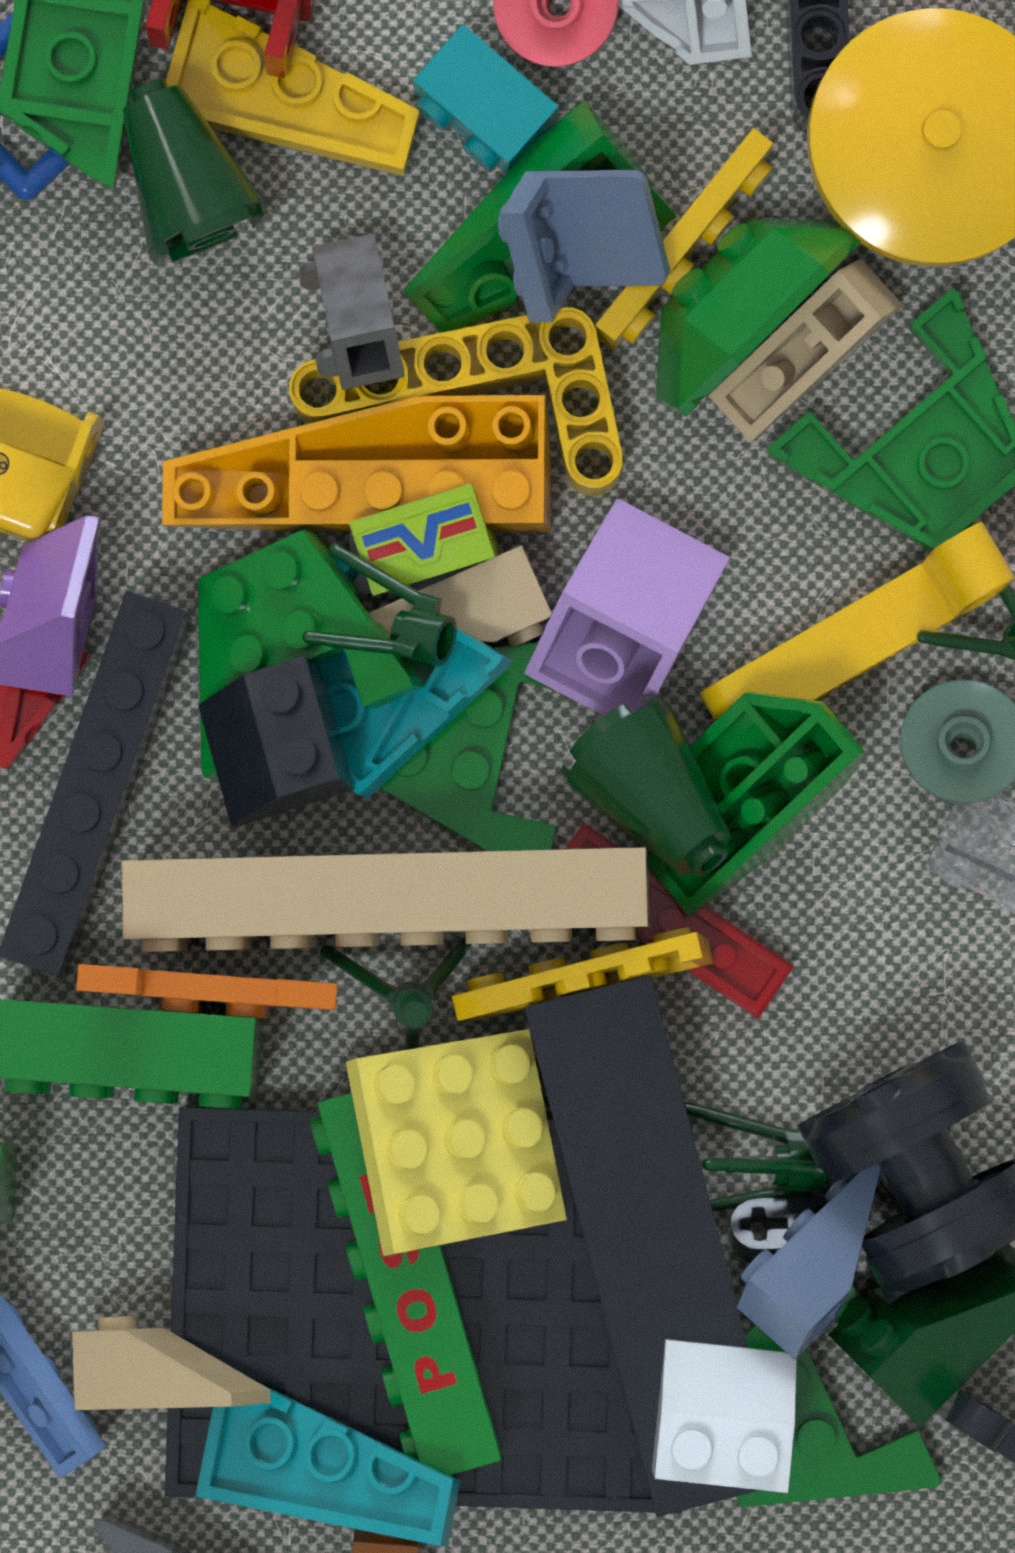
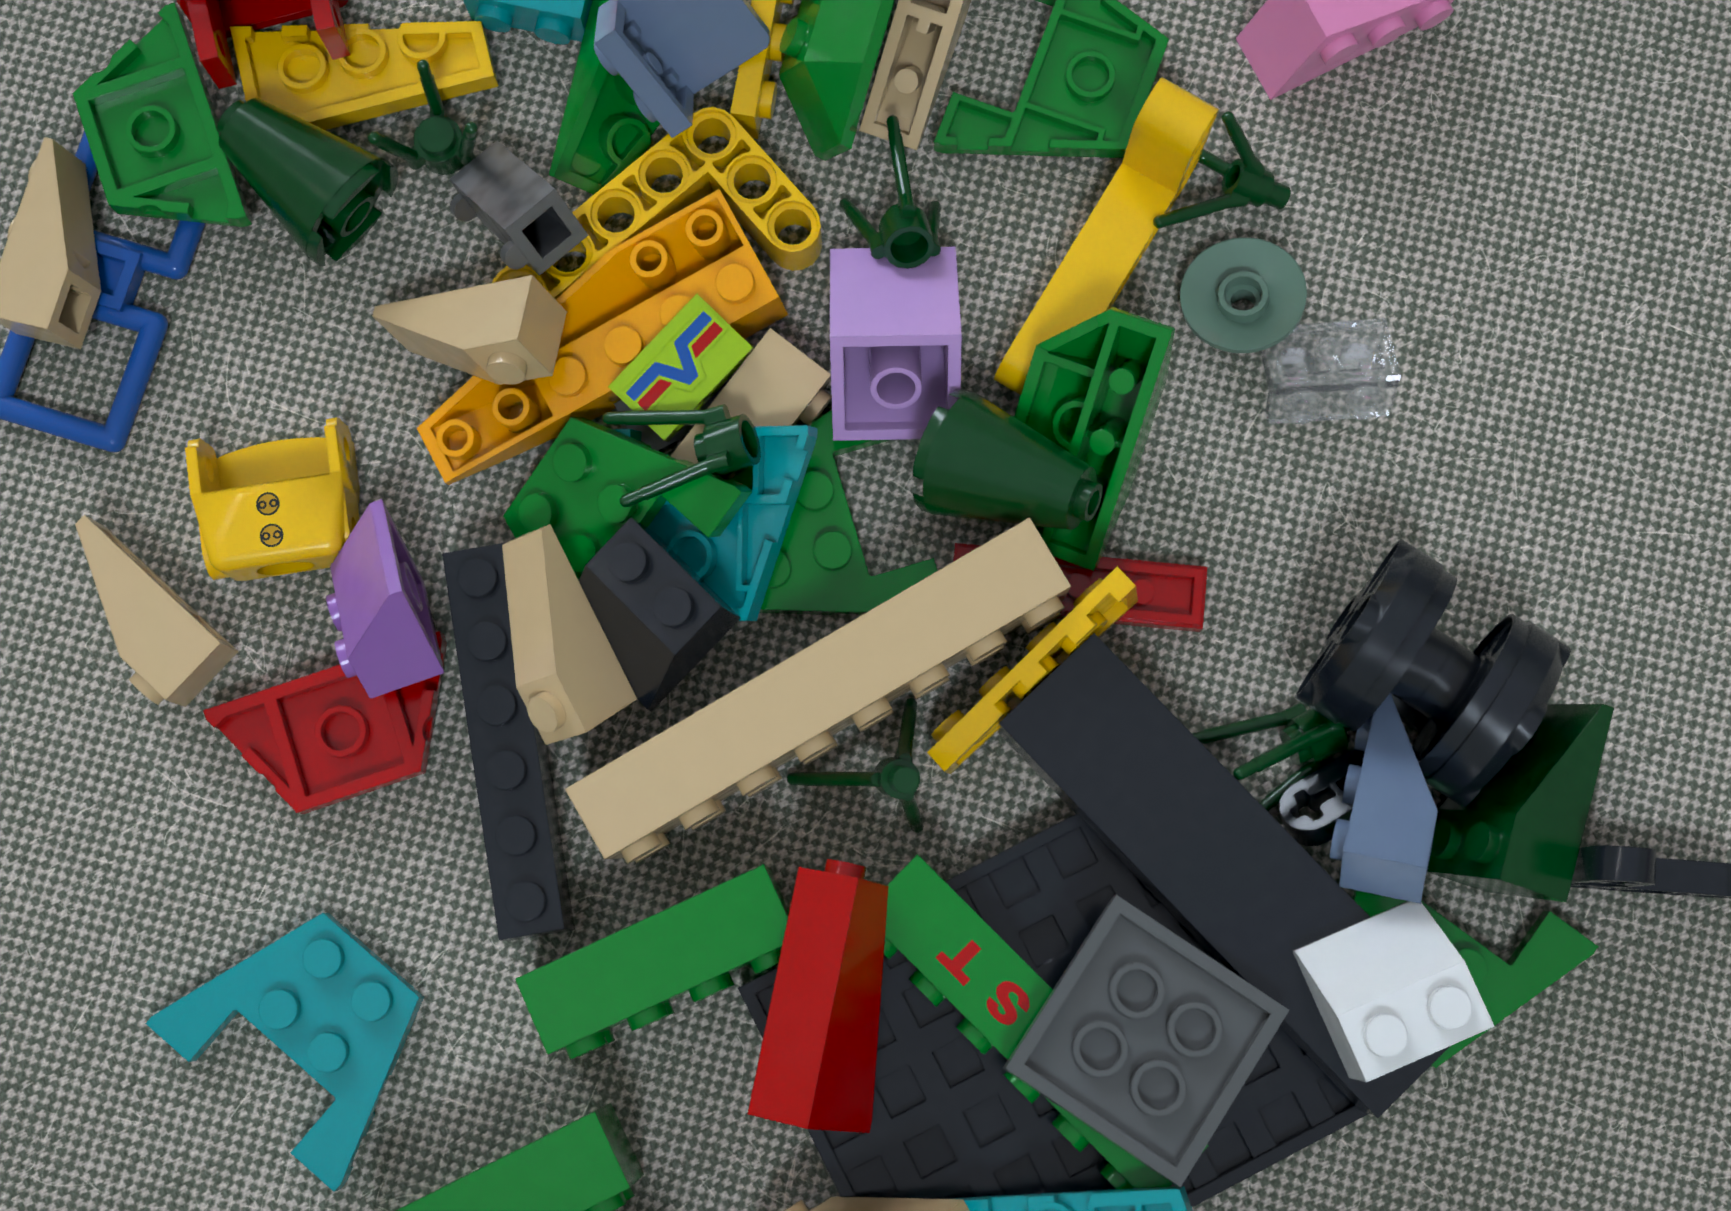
camera: 30 degrees left, 5 degrees down
(183, 730) = (558, 645): none -> tan slope
(189, 990) = (696, 870): orange wing -> none
(243, 1165) = (825, 1004): none -> red slope
(276, 417) = (488, 330): none -> tan slope
(321, 199) = (437, 139): none -> dark green plant
(455, 1141) = (1002, 878): light yellow plate -> none
(496, 1343) = (1146, 1040): none -> dark grey plate
(689, 523) = (906, 232): none -> dark green plant

